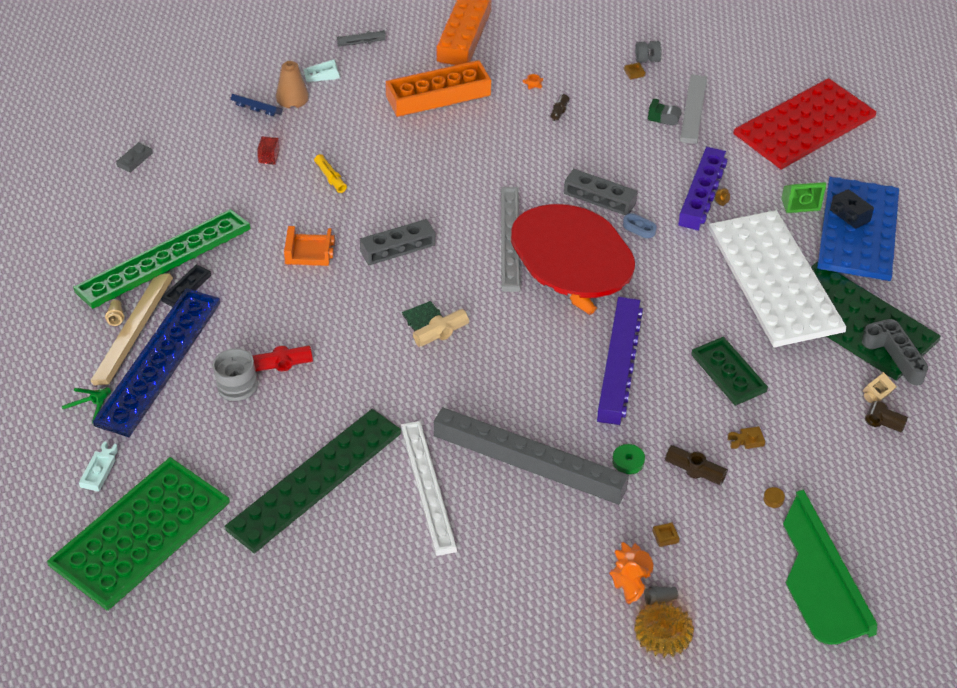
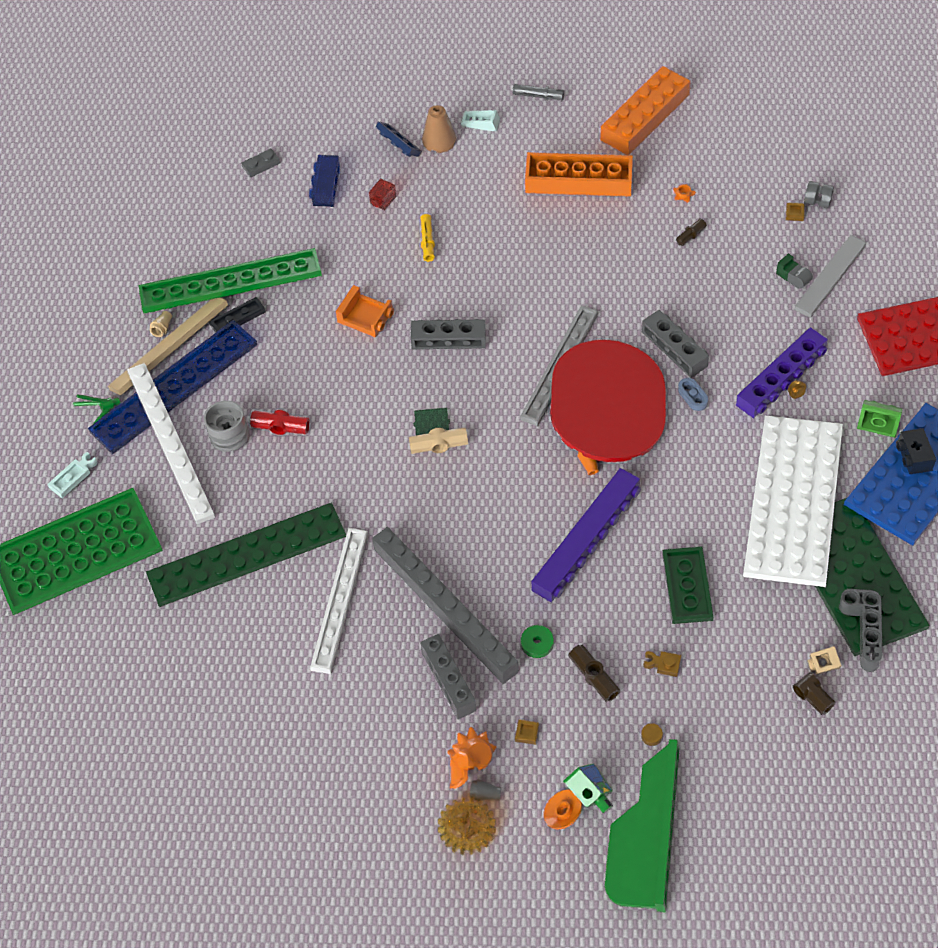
camera: 30 degrees right, 10 degrees up
(186, 408) = (171, 444): none -> white plate
(207, 154) = (325, 180): none -> clear blue brick
(570, 512) = (448, 676): none -> dark grey brick
(735, 578) = (562, 810): none -> orange dish
(746, 551) = (590, 787): none -> torso

